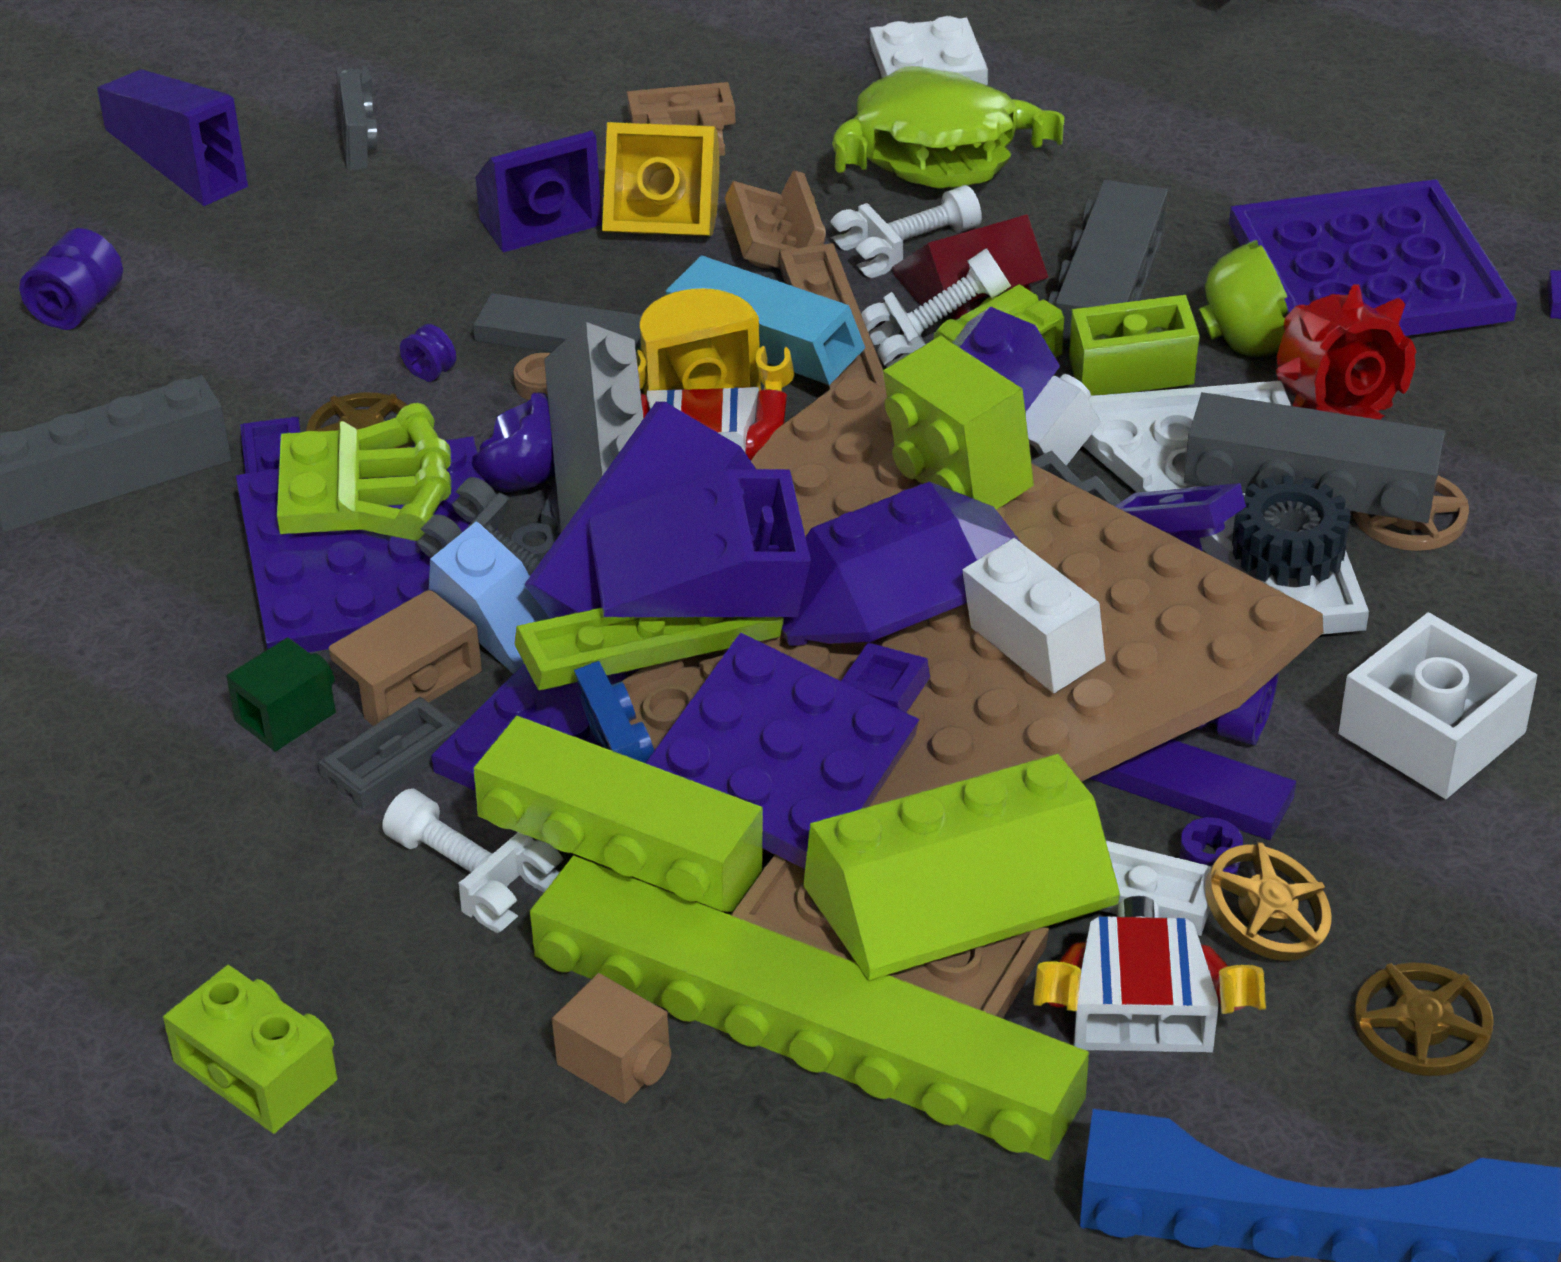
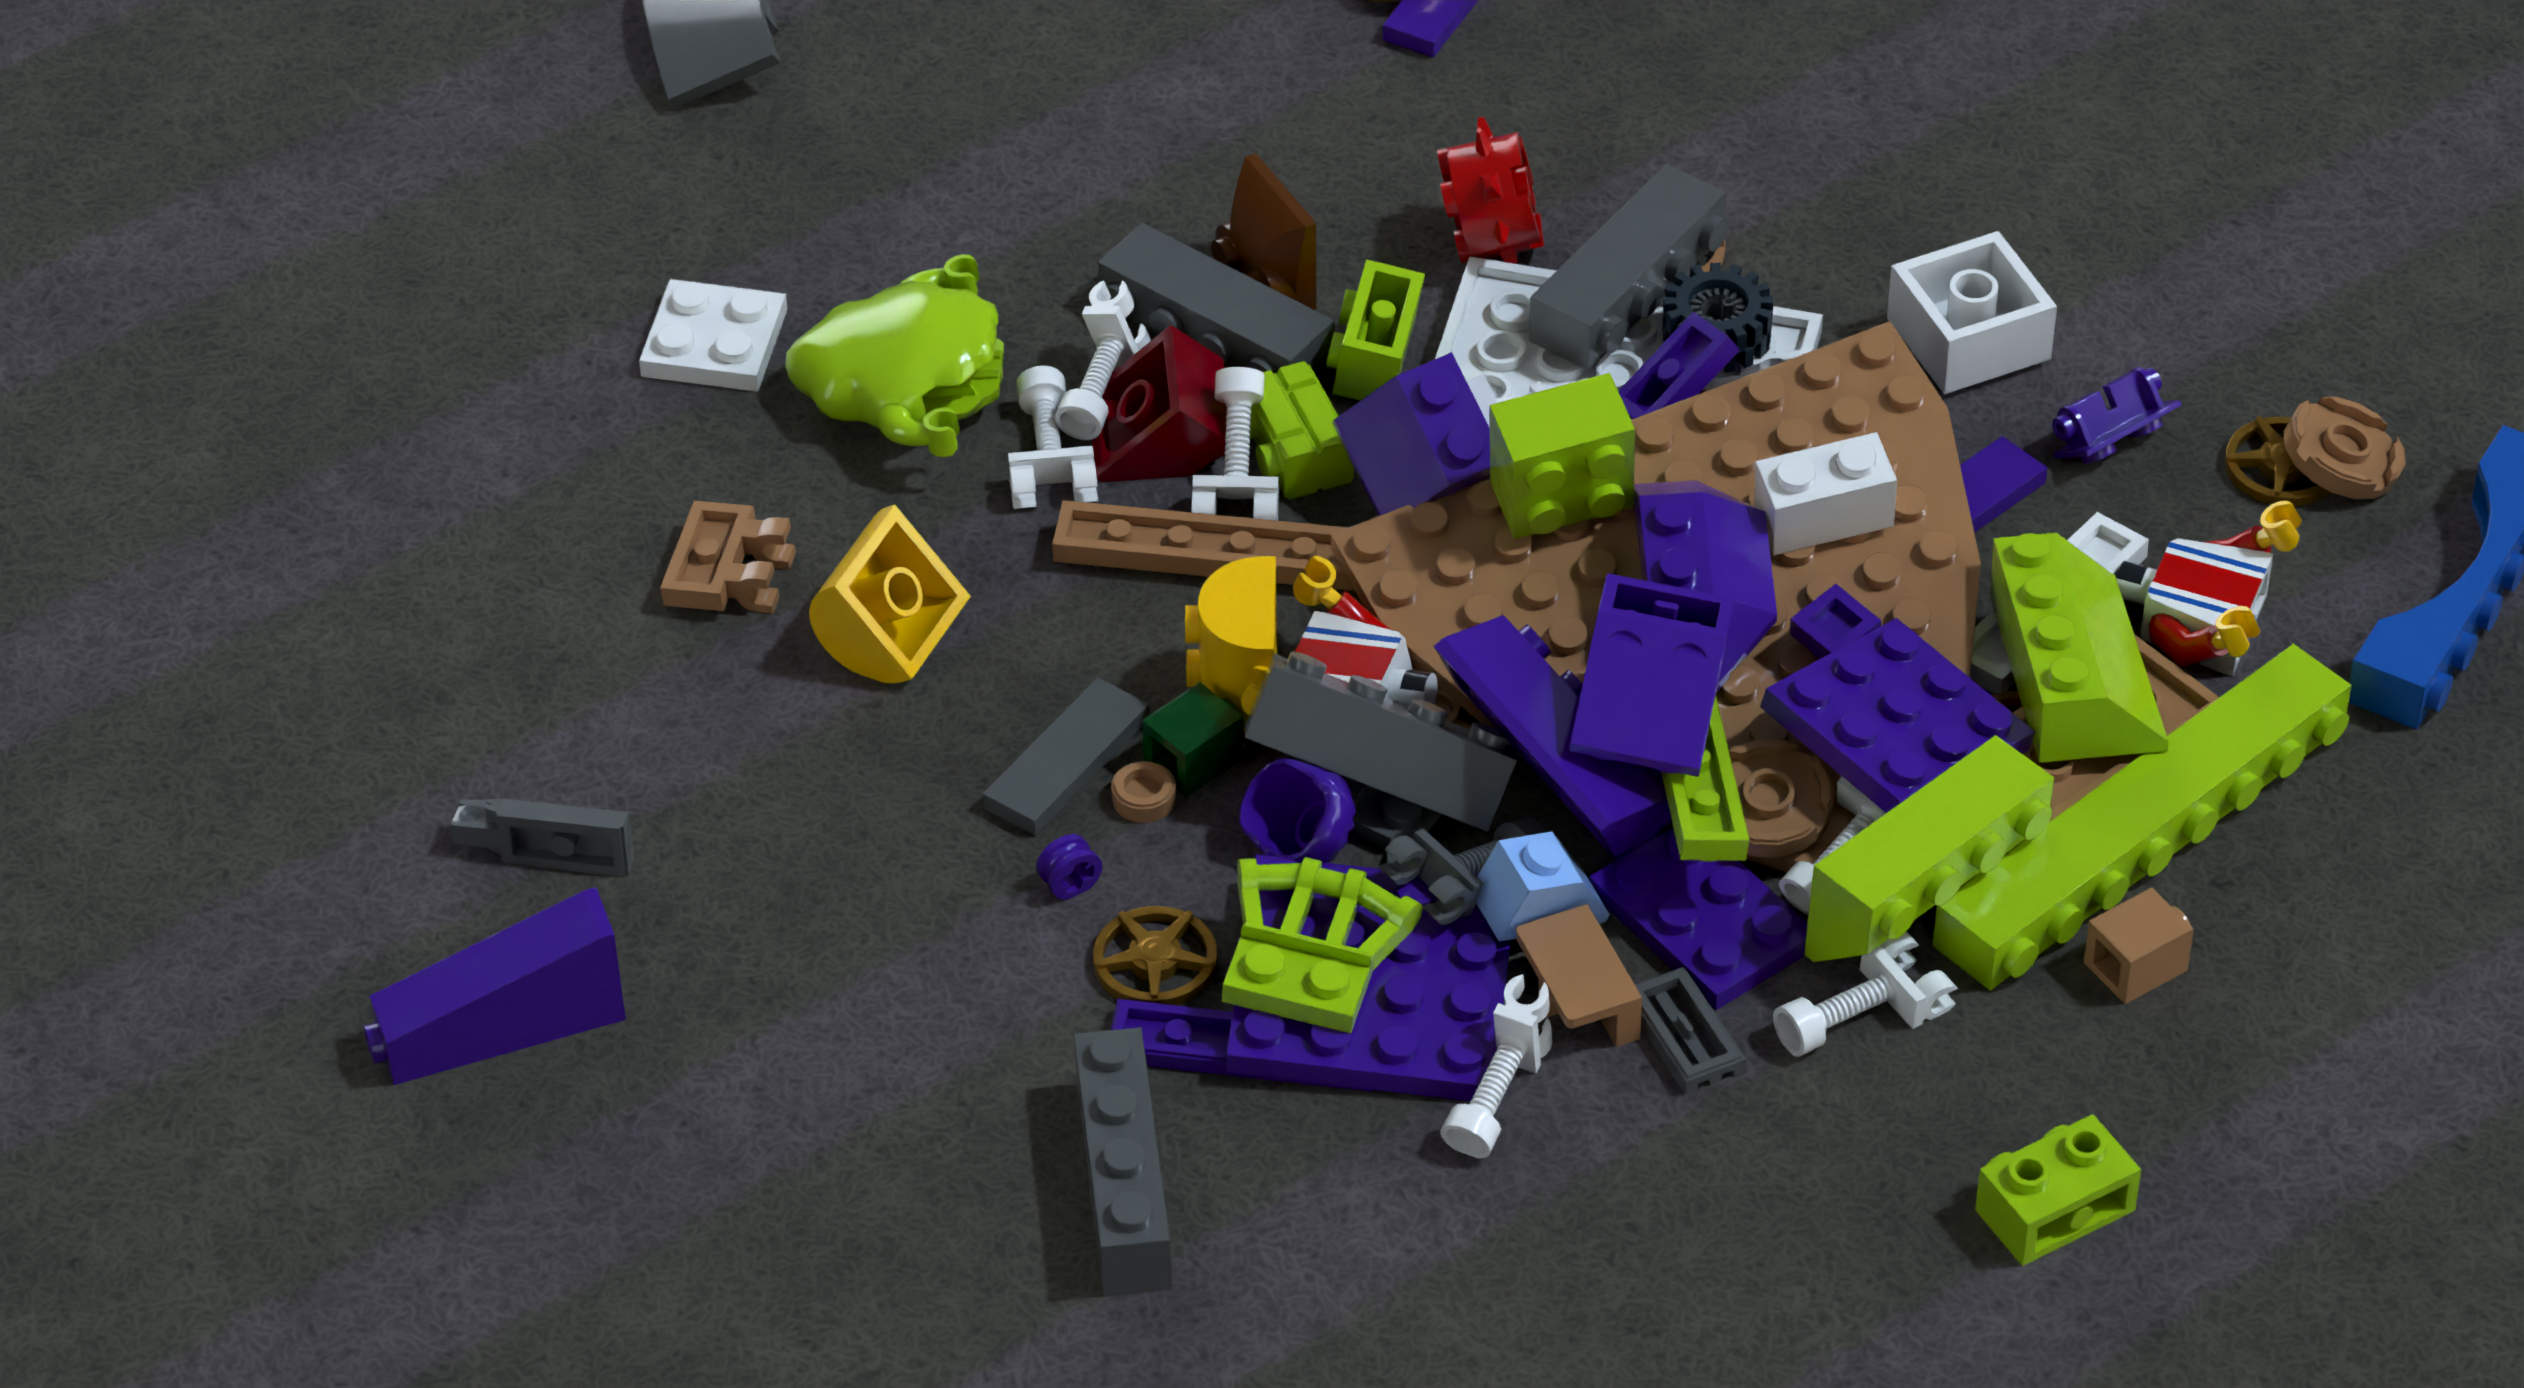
camera: 70 degrees left, 5 degrees up
(71, 279) = (768, 1140): dark purple wheel -> none
(282, 693) = (1586, 1085): dark green brick -> none
(311, 614) = (1472, 1126): none -> white bar
(540, 192) = (833, 701): dark purple slope -> none
(610, 713) = (1808, 823): blue hinge -> none
(774, 221) = (994, 529): medium nougat bracket -> none
(812, 327) = (1149, 596): medium azure brick -> none
(1041, 189) = (1083, 409): none -> white bar
(1196, 249) = (1269, 235): none -> reddish brown slope
(1209, 831) = (2049, 503): dark purple bush -> none
(1245, 302) = (1354, 225): lime cylinder -> none
(1268, 902) = (2137, 499): pearl gold wheel -> none
(1388, 241) = (1325, 123): dark purple plate -> none
(1397, 863) = (2133, 411): none -> dark purple hinge
(1459, 1054) = (2344, 448): none -> medium nougat tile

